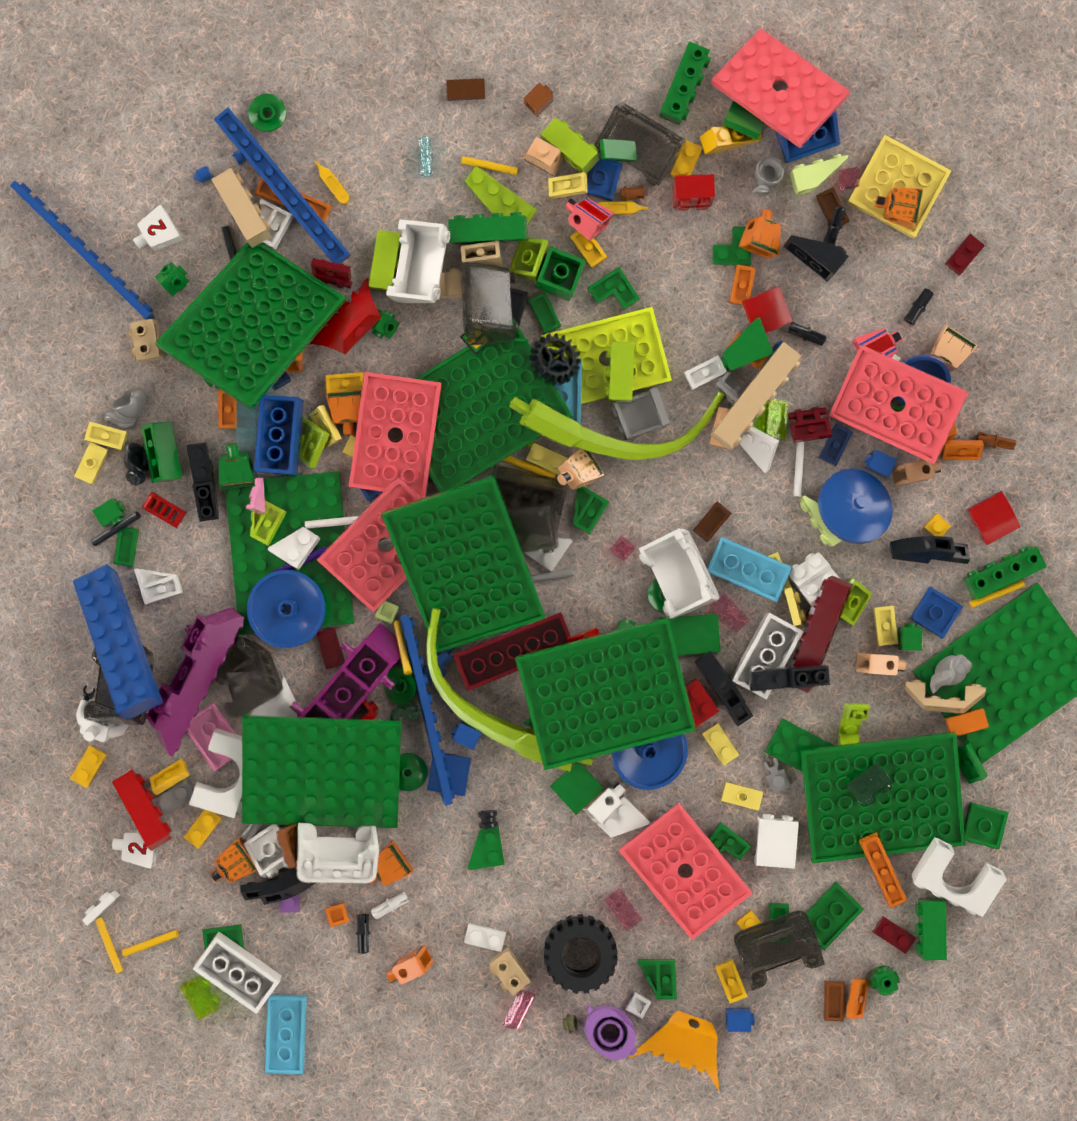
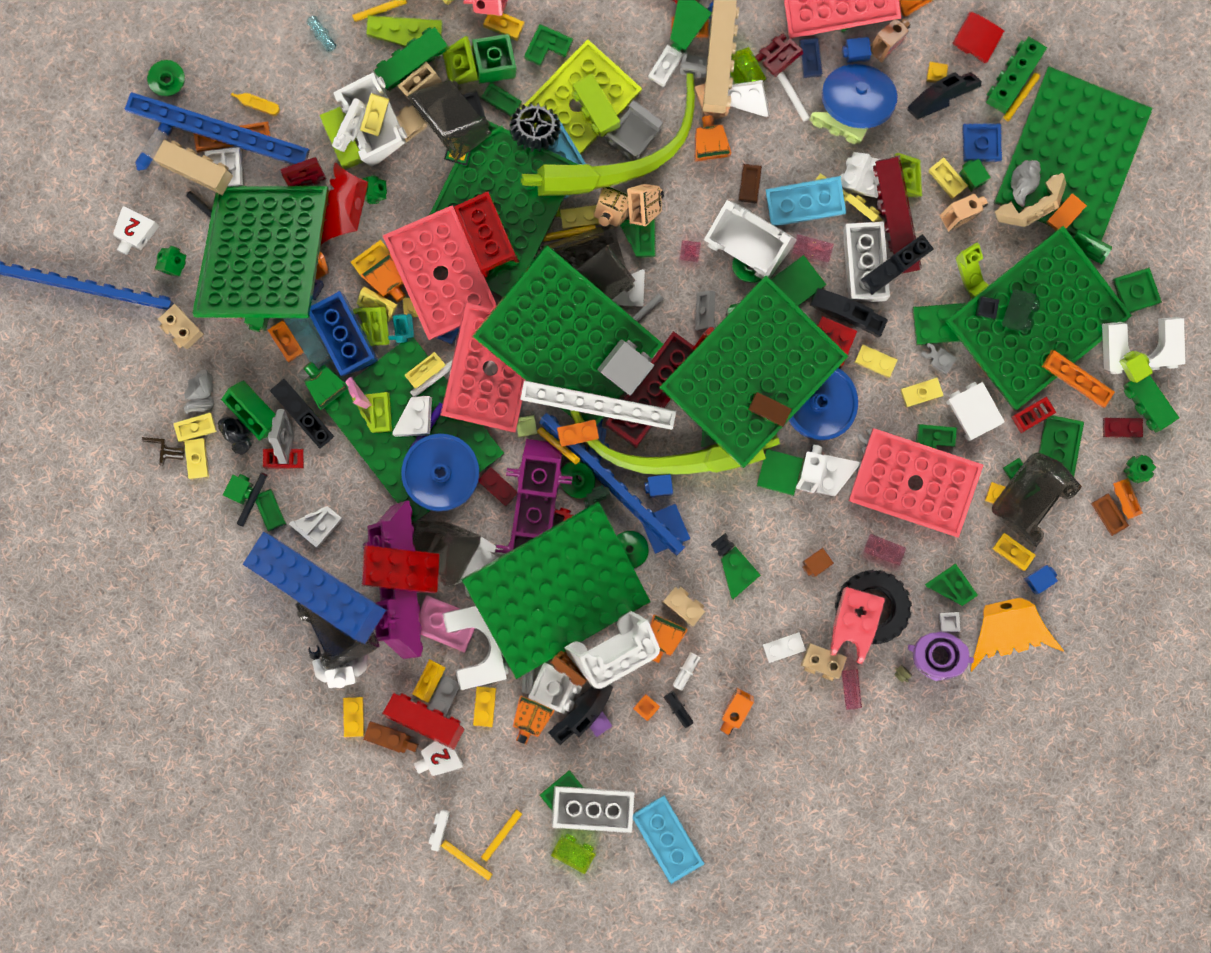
camera: 30 degrees left, 5 degrees down
(68, 440) = (165, 452): none -> dark brown bracket
(107, 803) = (389, 738): none -> dark orange hinge
(171, 492) = (281, 436): none -> light grey plate
(198, 673) = (400, 569): none -> red plate
(328, 511) = (425, 370): none -> light yellow plate
(334, 461) = (403, 328): none -> teal bracket
(397, 257) = (350, 125): none -> white hinge
(421, 850) = (683, 606): none -> tan brick
(422, 649) = (577, 433): none -> orange plate
(424, 260) = (374, 114): none -> light yellow plate
(453, 425) = (485, 233): none -> red plate
(455, 637) = (598, 405): none -> white tile
(499, 620) = (626, 366): none -> light grey brick
(551, 968) = (856, 629): none -> coral brick
(558, 885) = (817, 563): none -> dark orange brick
(597, 735) = (769, 409): none -> reddish brown tile
(601, 609) = (705, 310): none -> light grey plate
(608, 484) = (644, 203): none -> light nougat torso
(701, 464) = (710, 141): none -> orange torso
(816, 883) = (1018, 421): none -> red slope
(843, 763) = (987, 307): none -> black tile
(938, 894) = (1136, 366): none -> lime brick

